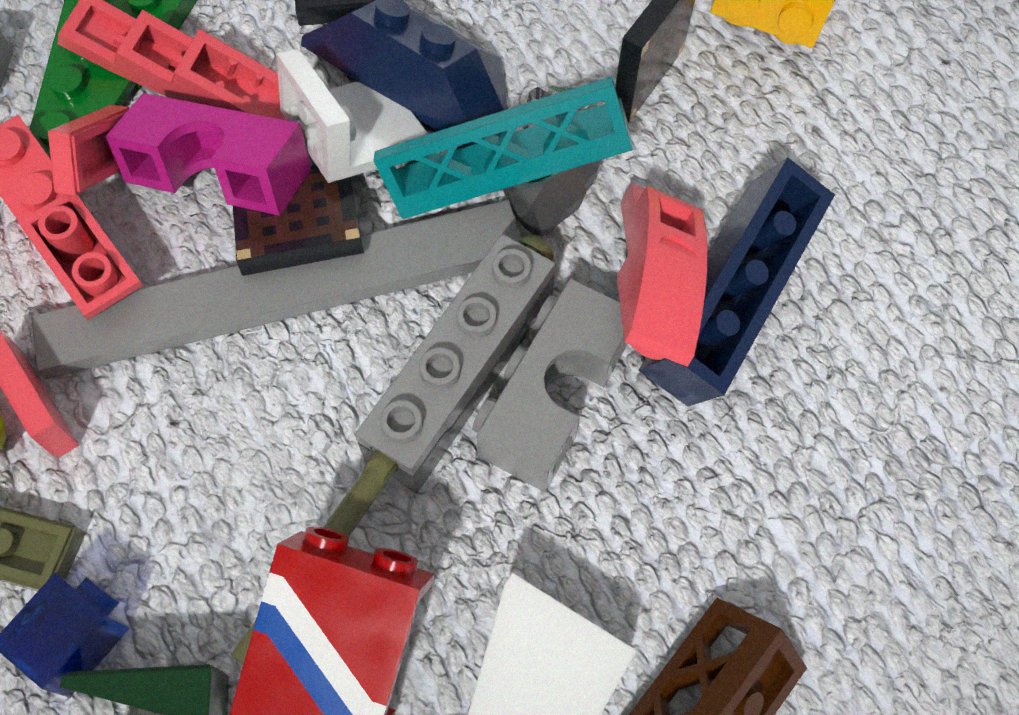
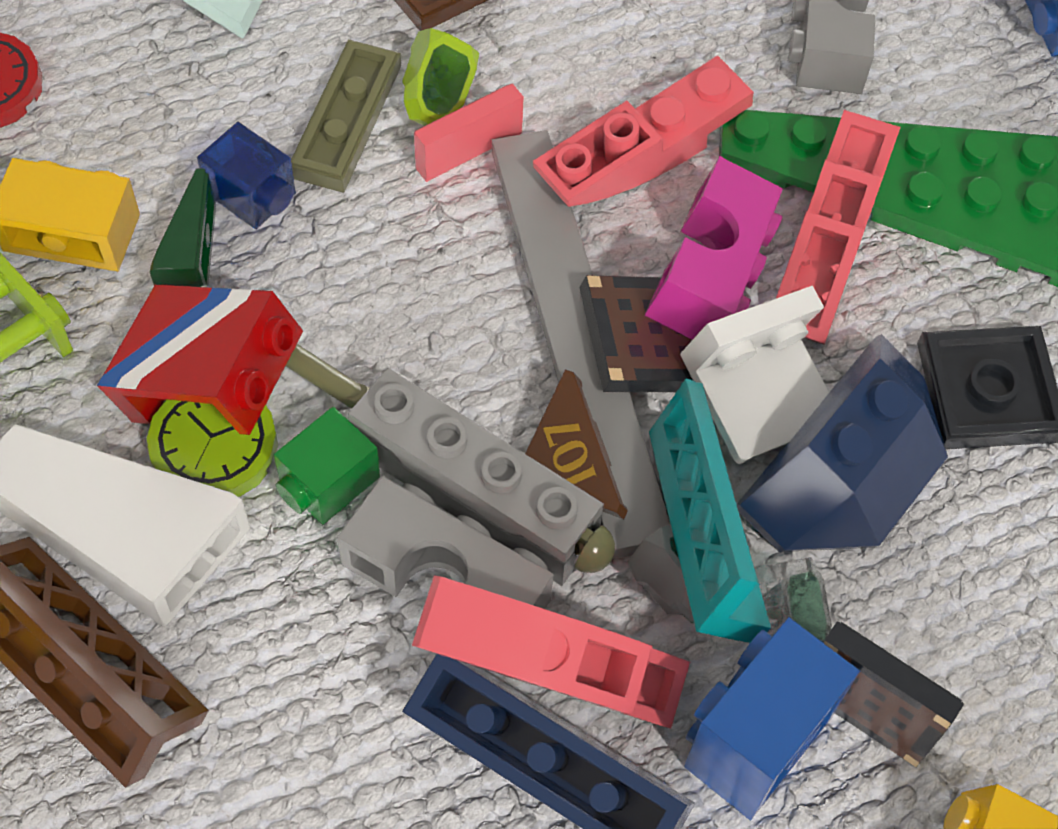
camera: 90 degrees right, 5 degrees down
(81, 151) = (699, 137): coral tile -> none
(428, 277) = (573, 447): none -> reddish brown tile
(443, 643) = (204, 447): none -> lime tile
(453, 504) = (326, 466): none -> green brick
(689, 113) = (766, 715): none -> blue brick

